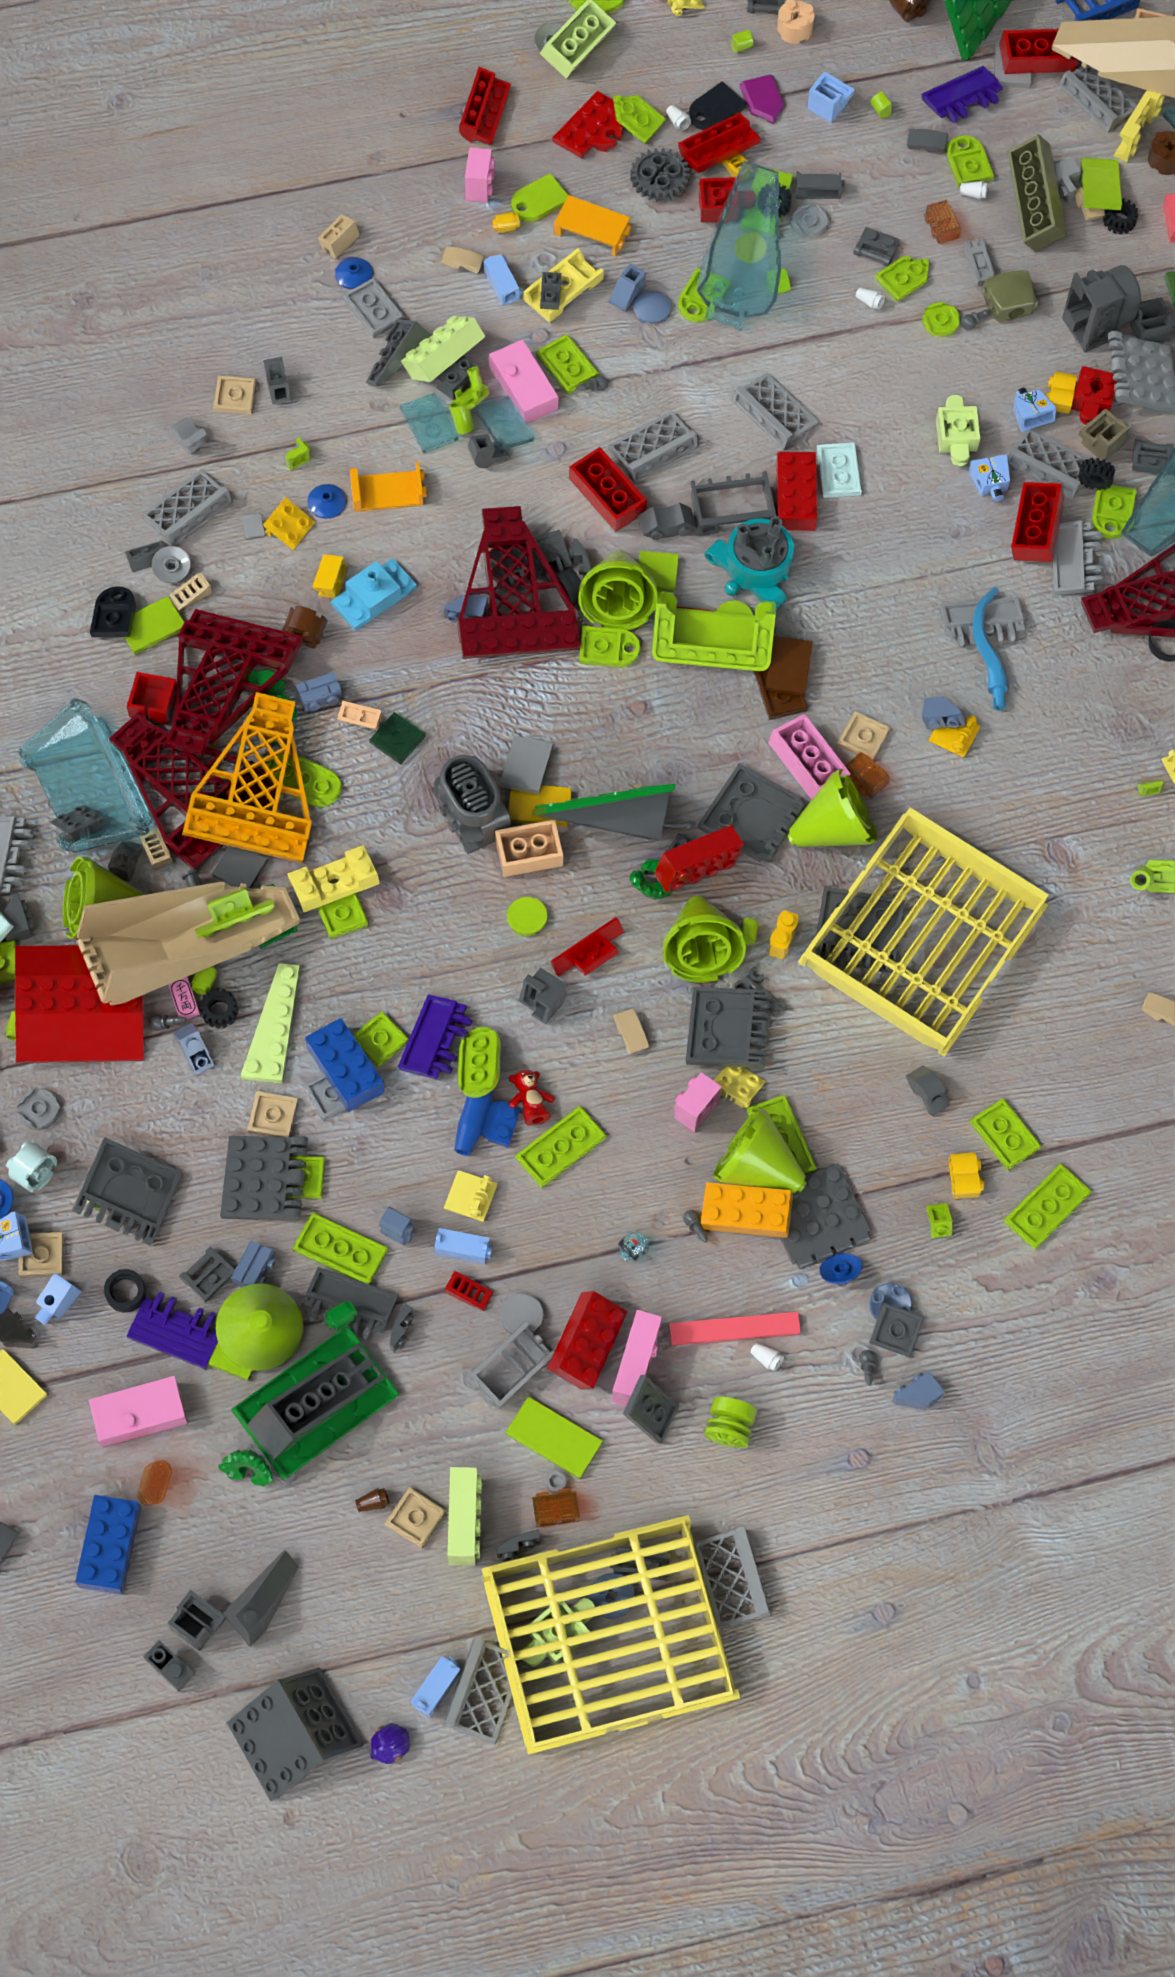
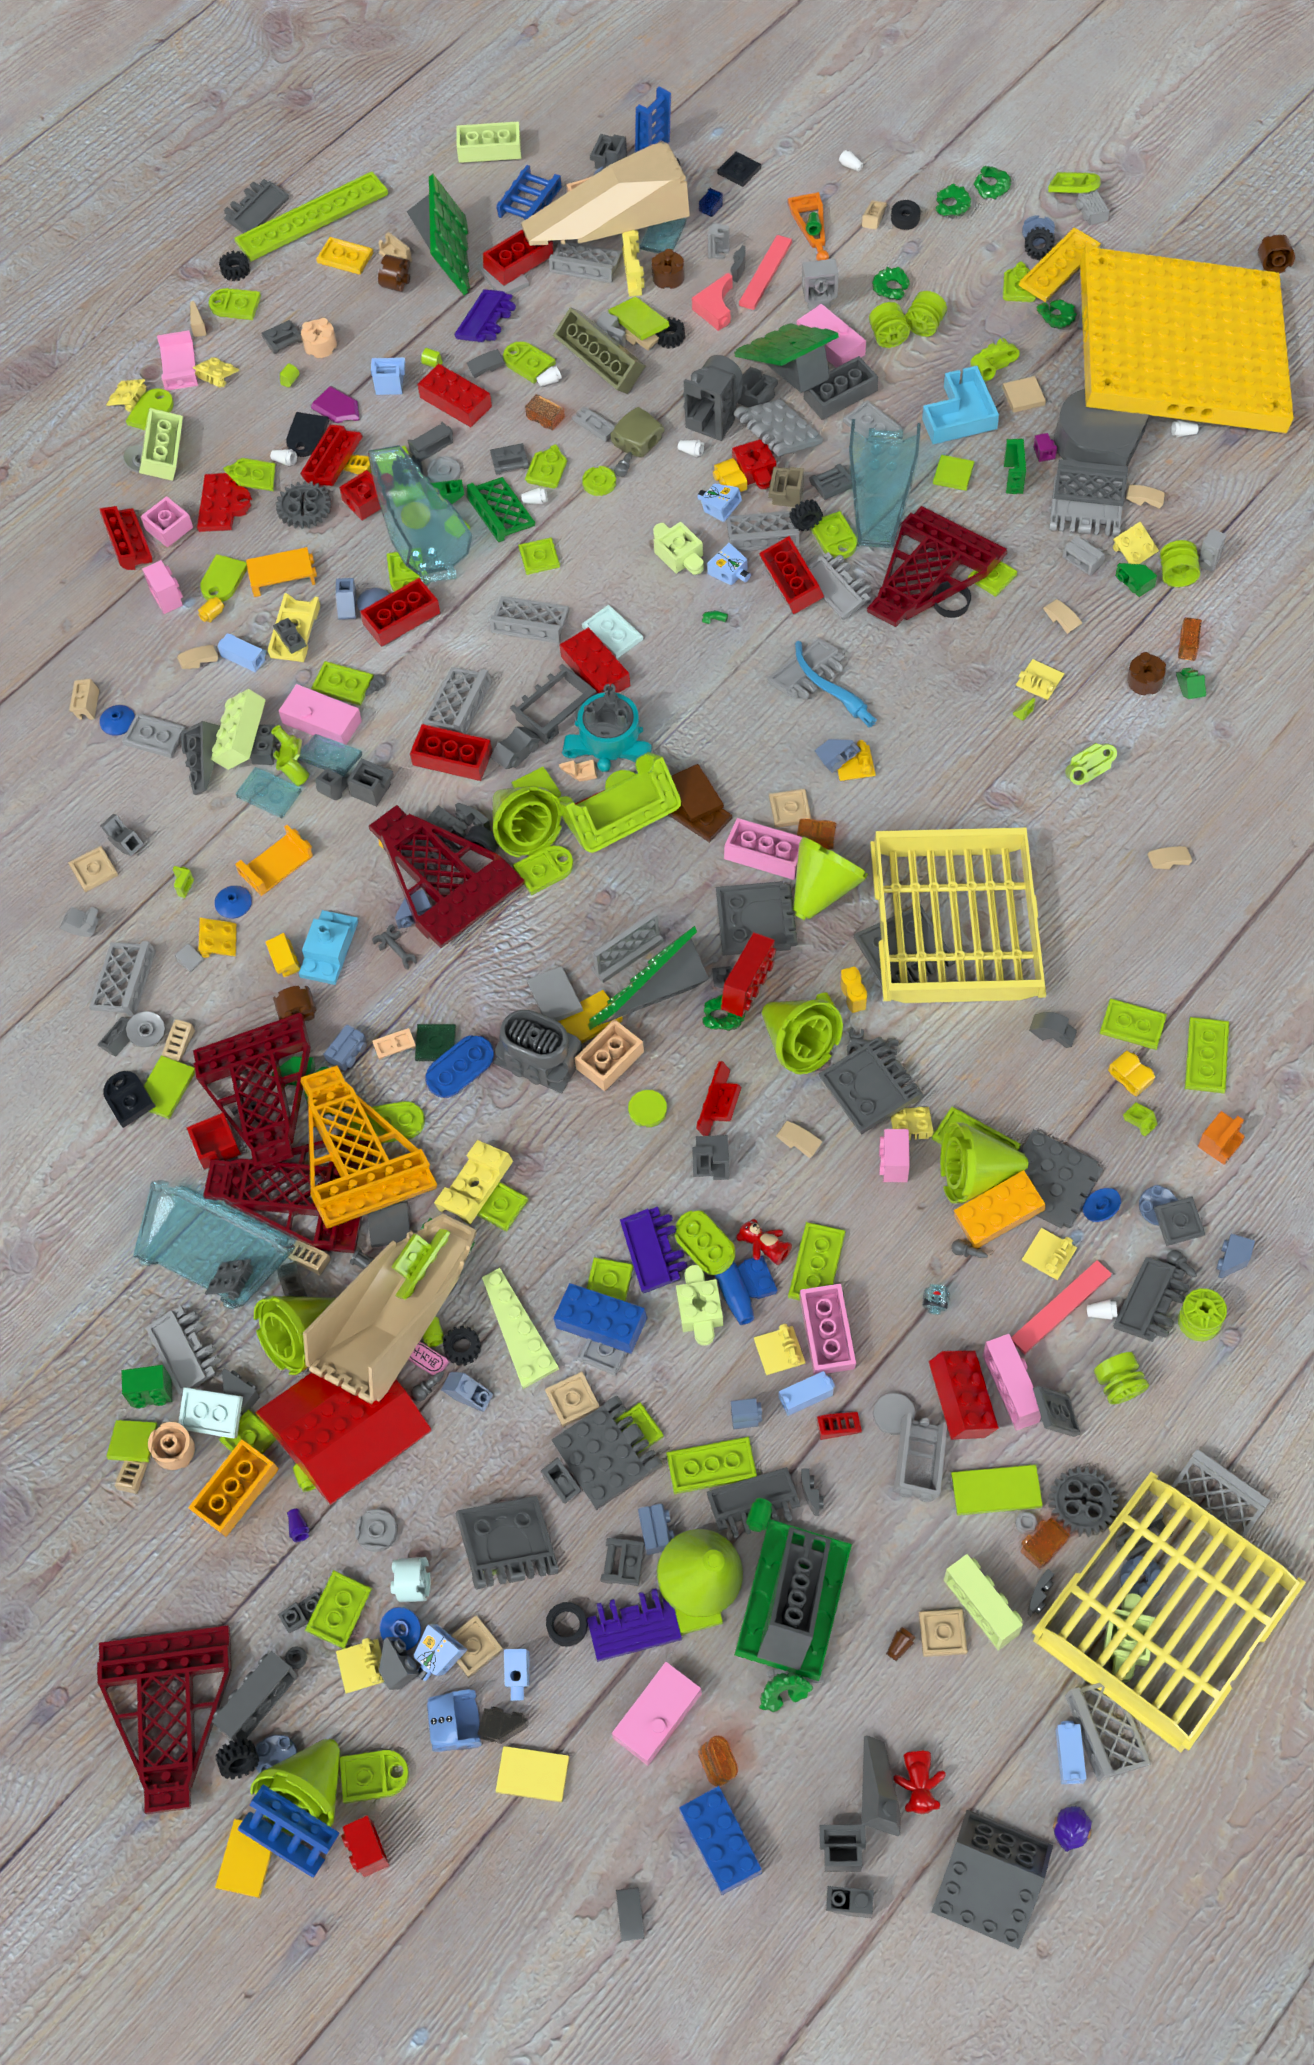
camera: 30 degrees left, 5 degrees down
(208, 1173) = (560, 1480): none -> dark grey slope
(298, 1618) = (918, 1767): none -> red piece
(399, 772) = (459, 1066): none -> blue tile
(428, 619) = (388, 938): none -> dark grey bar
(433, 1111) = (699, 1305): none -> yellowish green brick
(518, 469) = (369, 782): none -> dark grey plate
(521, 1206) = (827, 1329): none -> bright pink brick
(529, 115) = (167, 521): none -> bright pink brick
(601, 1511) = (1082, 1520): none -> dark grey gear
(614, 770) = (627, 952): none -> light grey fence
(664, 330) = (400, 612): none -> red brick
(708, 580) = (581, 771): none -> light nougat slope
(762, 1277) = (1049, 1253): none -> light yellow hinge
(793, 243) = (450, 490): none -> green slope
(814, 1374) = (1147, 1297): none -> dark grey hinge
(816, 282) = (488, 512): none -> green fence
(830, 356) = (539, 556): none -> lime tile
(844, 1433) = (1196, 1322): none -> lime wheel
(874, 154) = (454, 395): none -> red brick
(940, 513) = (717, 615): none -> green arm
(995, 1286) = (1222, 1137): none -> orange plate
(1050, 341) = (691, 447): none -> white cone

